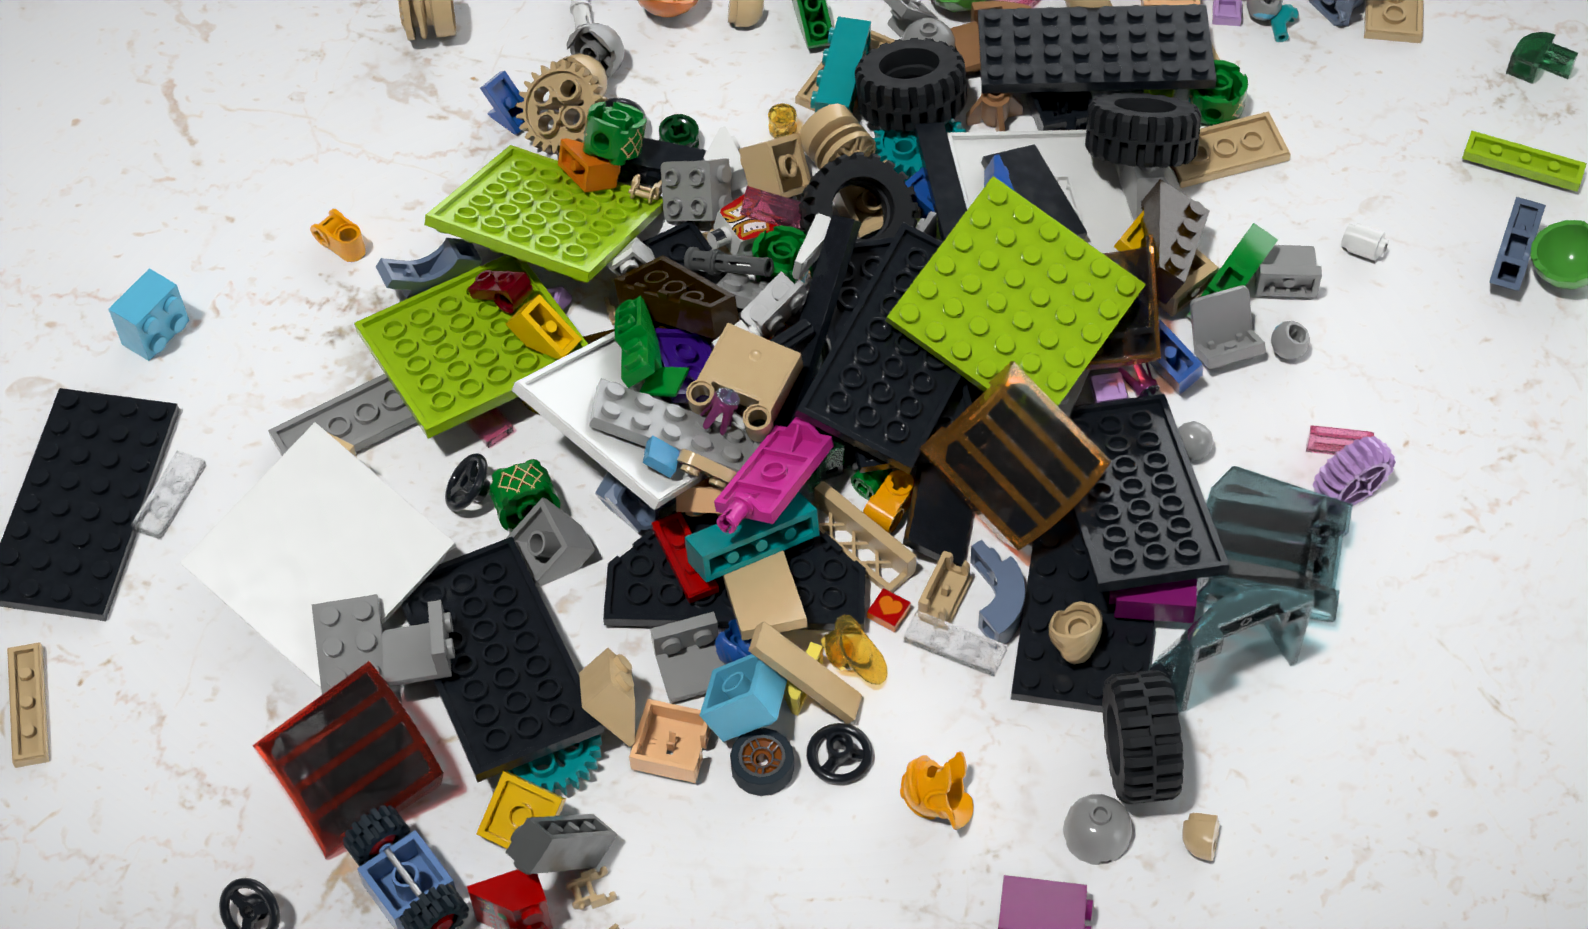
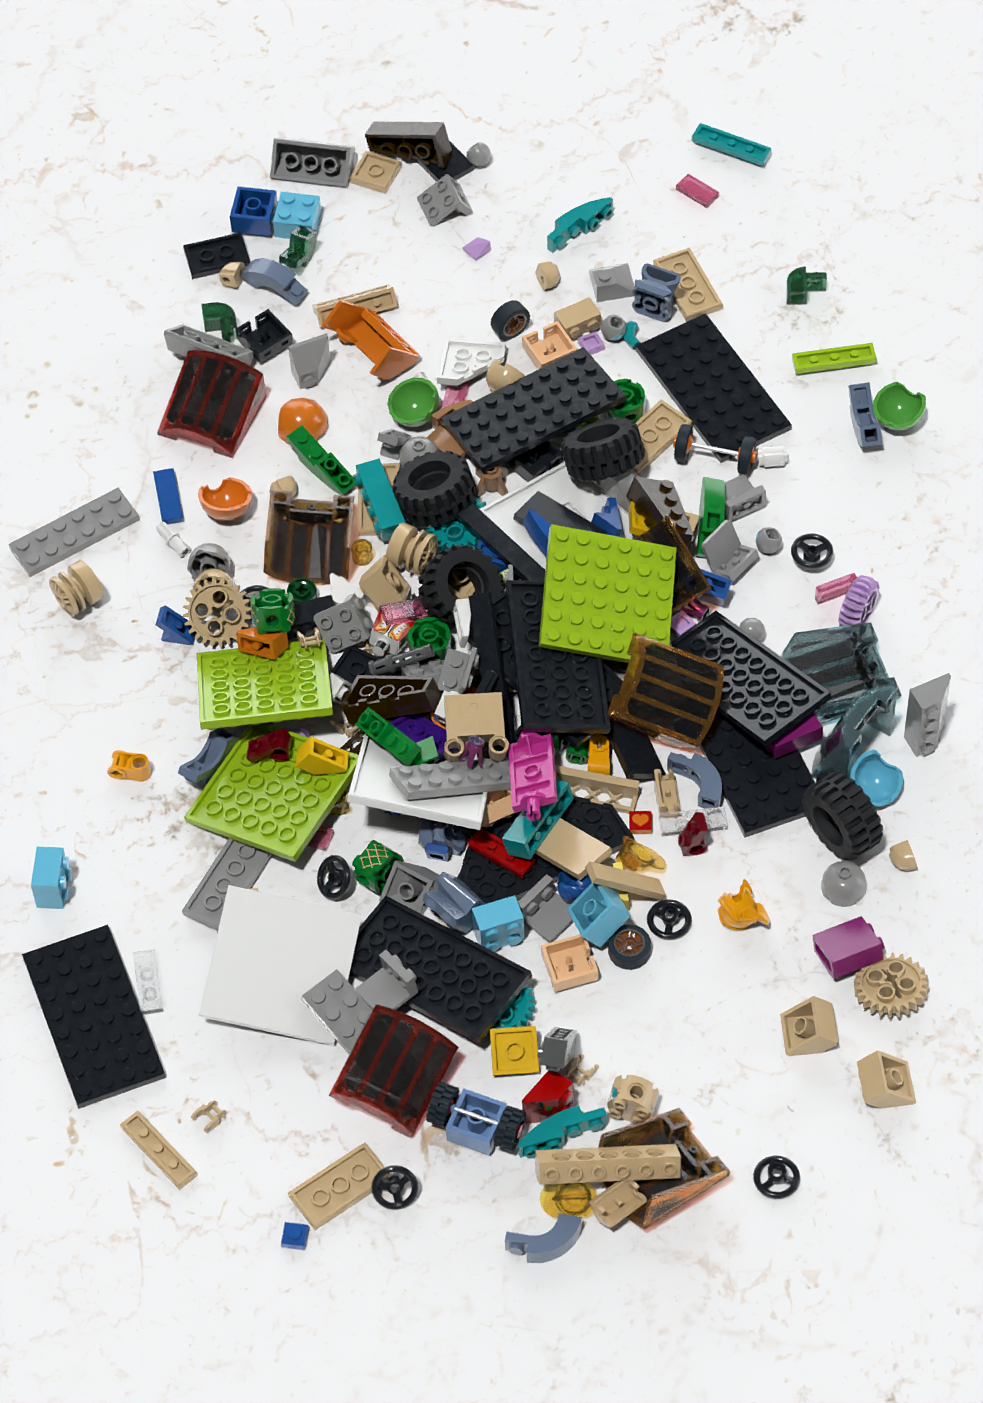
camera: 30 degrees left, 0 degrees up
(95, 904) = (294, 1236): none -> blue plate
(115, 704) = (204, 1110): none -> tan piece
(191, 869) = (337, 1186): none -> tan tile
(578, 587) = (453, 902): none -> sand blue piece
(609, 694) = (523, 950): tan slope -> none
(611, 516) = (437, 852): none -> blue tile
(618, 631) = (498, 923): none -> medium azure brick
(661, 456) = (460, 796): dark azure tile -> none
(694, 464) = (484, 790): tan plate -> none
(725, 73) = (308, 538): none -> clear smoke windscreen
(939, 663) = (692, 837): none -> dark red plate
(1076, 631) = (762, 776): tan hair -> none
(1098, 219) = (609, 518): none -> blue slope
(1224, 711) = (877, 778): none -> medium azure cylinder
(1259, 174) = (745, 456): none -> black axle
(1337, 382) = (811, 553): none -> black piece
(1345, 129) = (712, 386): none -> black plate
(1349, 660) = (926, 714): none -> light grey slope

